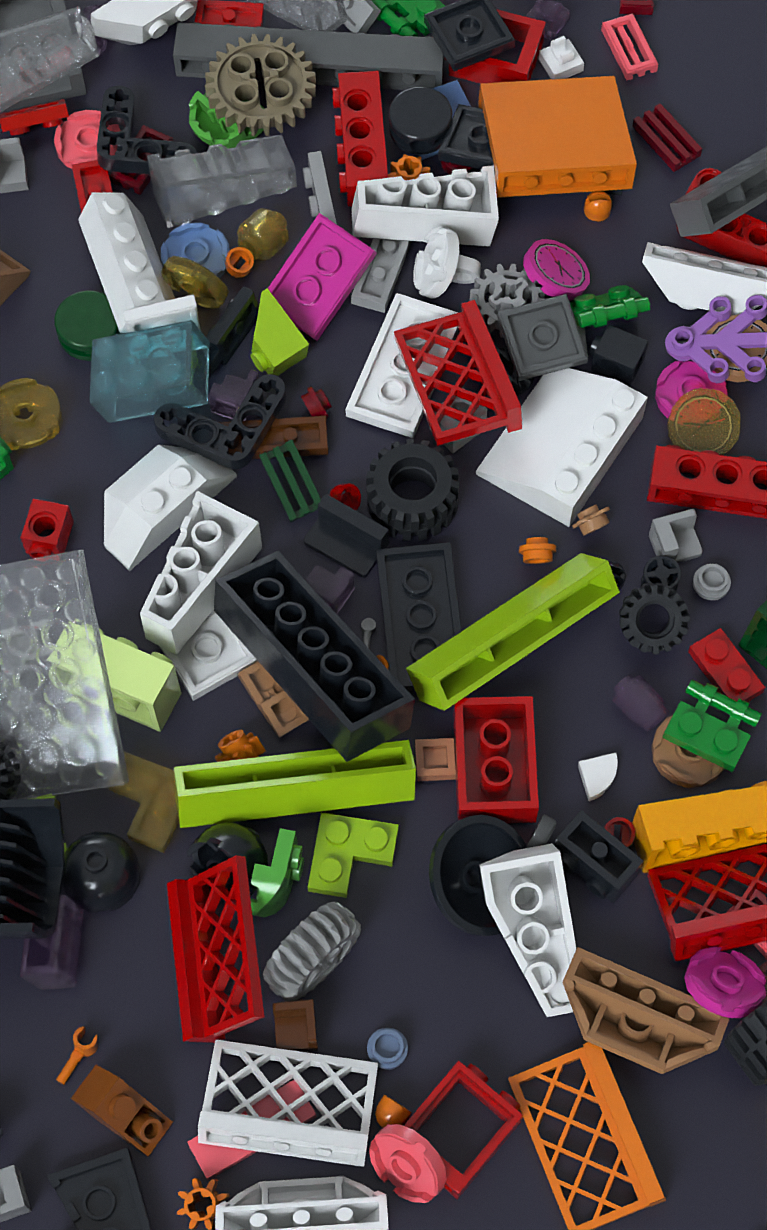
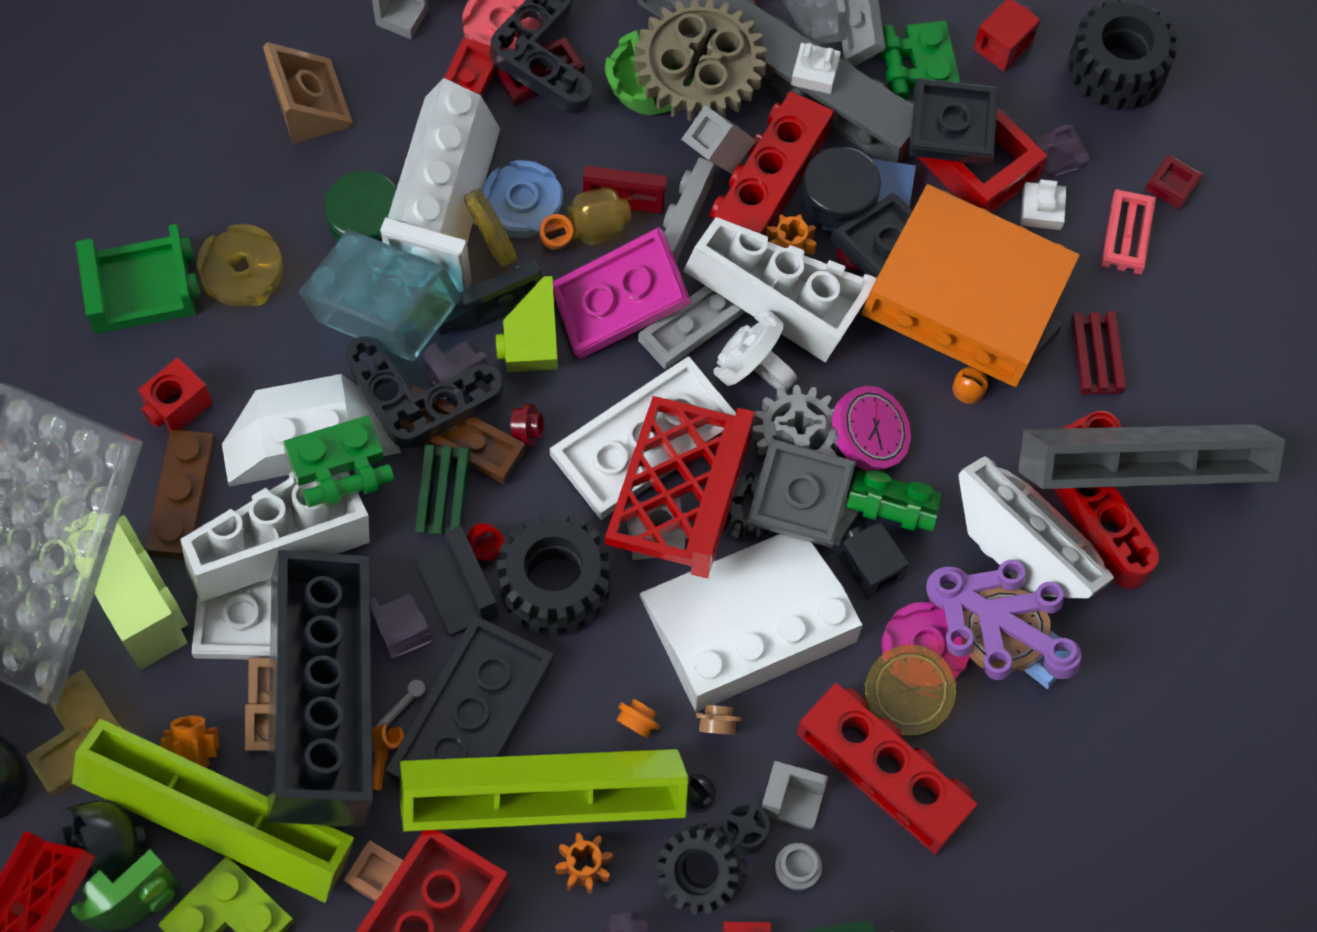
camera: 30 degrees right, 0 degrees up
(109, 605) = (180, 492): none -> reddish brown plate
(204, 490) = (335, 451): none -> green plate
(220, 178) = (584, 132): clear wedge -> none
(281, 198) = (641, 190): none -> dark red tile
(314, 132) = (718, 139): none -> light grey brick
(346, 46) = (816, 68): none -> white tile
(564, 673) = (581, 850): none -> orange gear

